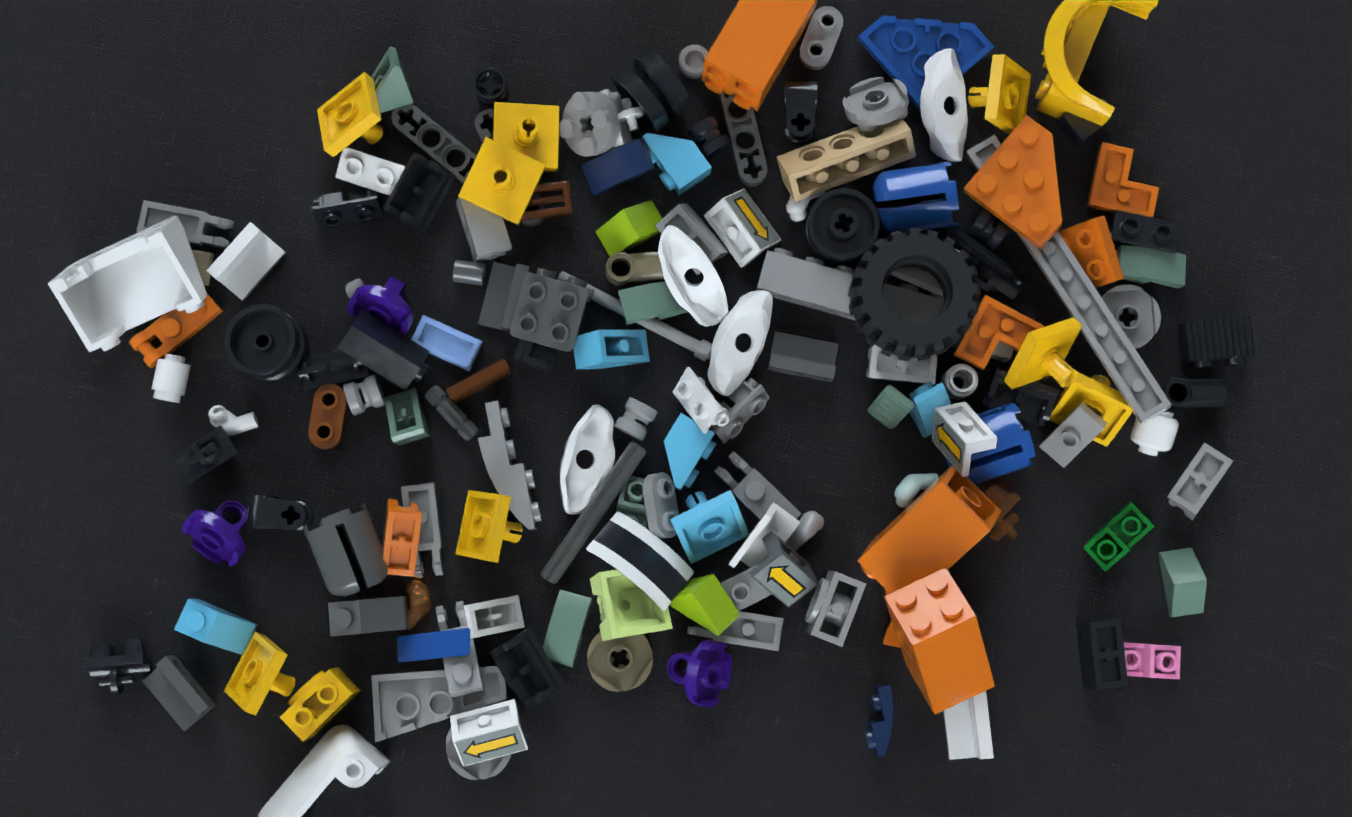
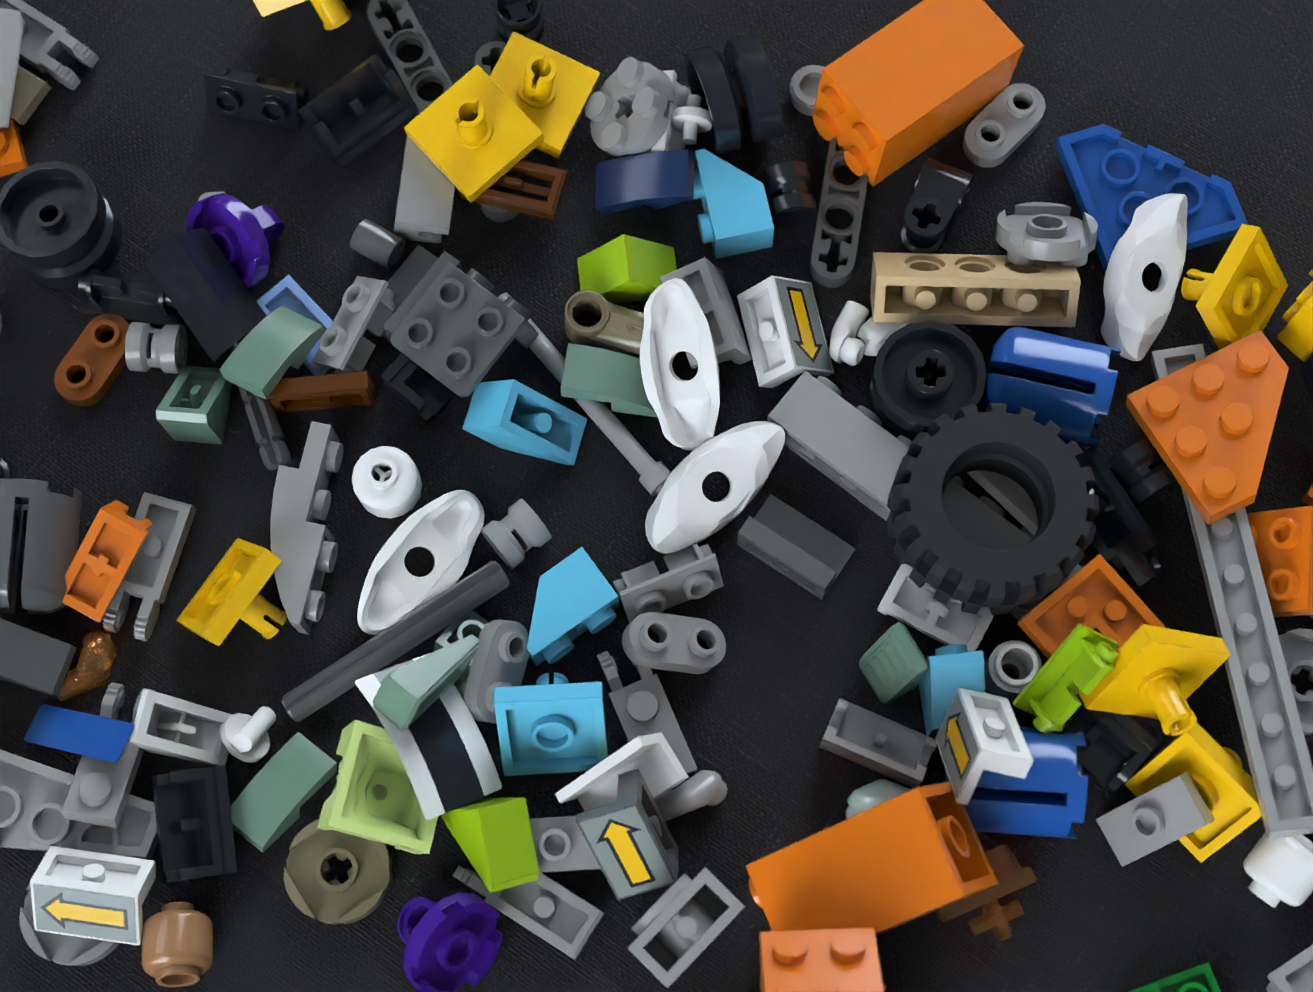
camera: 30 degrees right, 10 degrees down
(246, 261) = (87, 111): white panel -> none
(368, 171) = (303, 56): white hinge -> none
(441, 370) = (269, 350): none -> sand green slope
(480, 321) = (364, 307): none -> light grey hinge
(530, 604) = (247, 735): none -> white plate
(546, 432) = (386, 482): none -> white head
(548, 739) = (177, 945): none -> medium nougat head
(624, 538) = (419, 684): none -> sand green slope
(699, 401) = (617, 543): white hinge -> none
(759, 444) = (678, 643): none -> light grey plate
(778, 214) = (843, 341): none -> white arm
(899, 454) = (878, 743): none -> light grey hinge
(999, 367) = (1073, 667): none -> lime hinge

